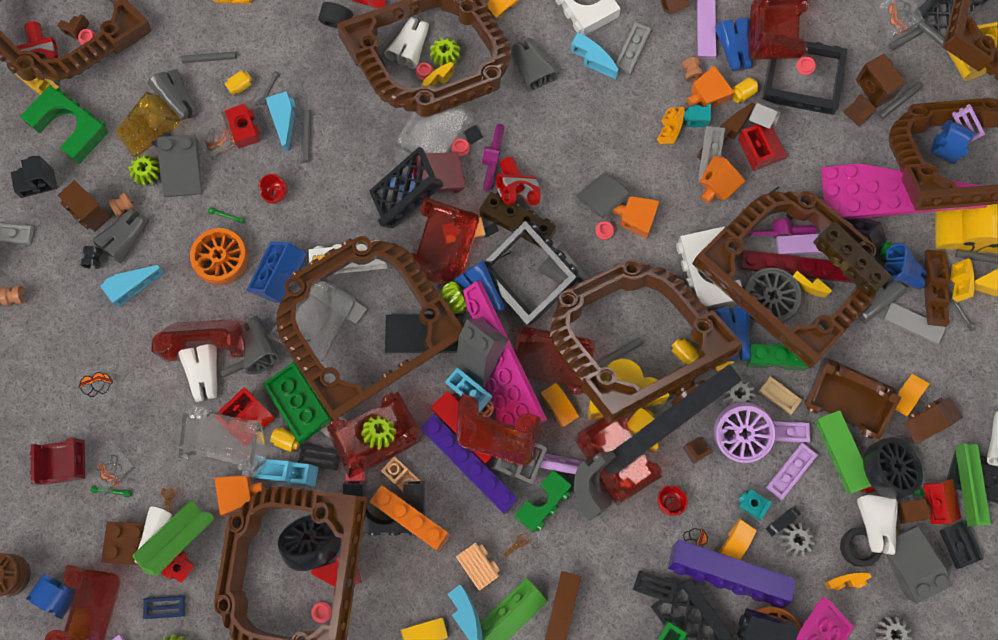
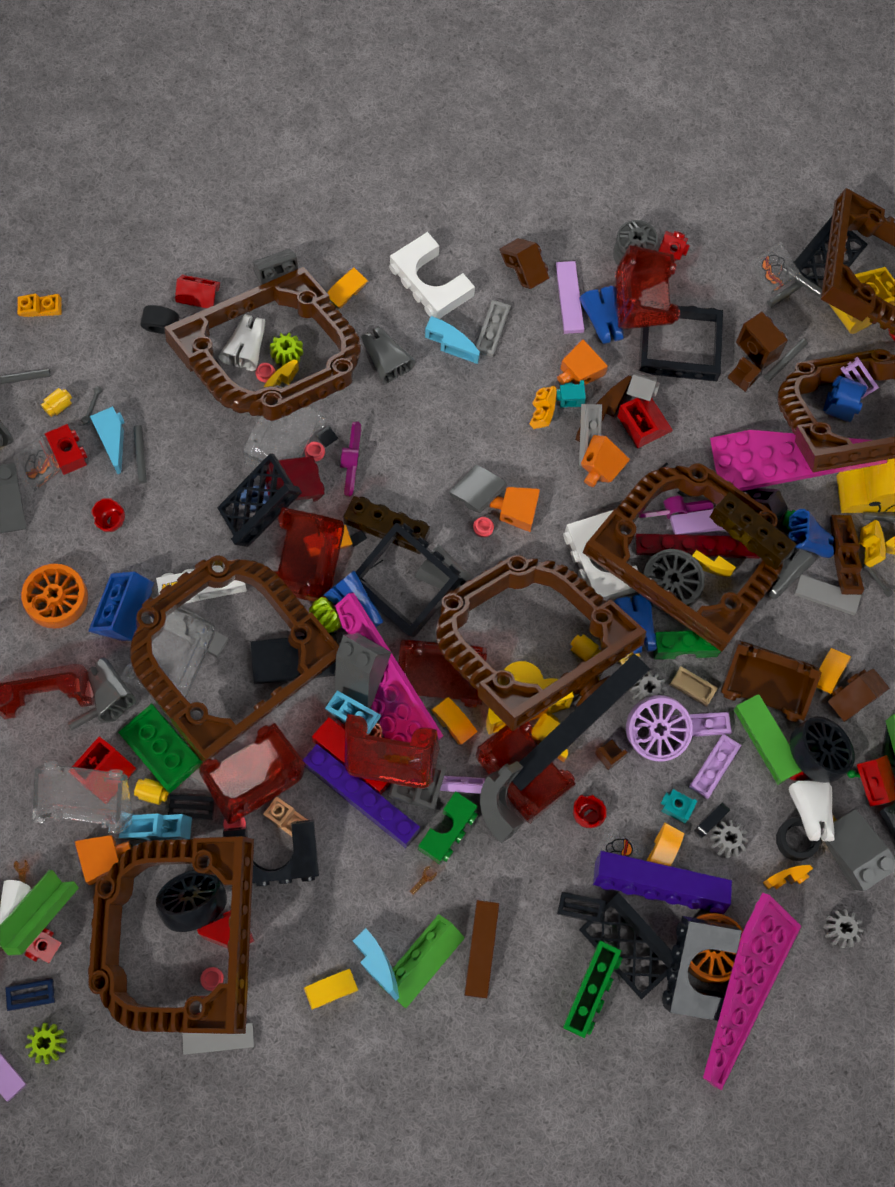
camera: 15 degrees left, 5 degrees down
(200, 370) = (46, 723): white piece -> none
(212, 211) = (40, 546): green hinge -> none
(371, 434) = (257, 770): lime gear -> none
(410, 518) = (283, 849): orange arch -> none
(478, 566) = (383, 907): light nougat brick -> none
(513, 183) = (377, 484): red connector -> none
(620, 352) = (517, 655): dark grey bar -> none
(692, 69) = (560, 345): nougat wheel -> none
(745, 90) = (619, 363): yellow brick -> none
(806, 65) = (681, 331): coral plate -> none
(913, 511) = (849, 794): reddish brown brick -> none

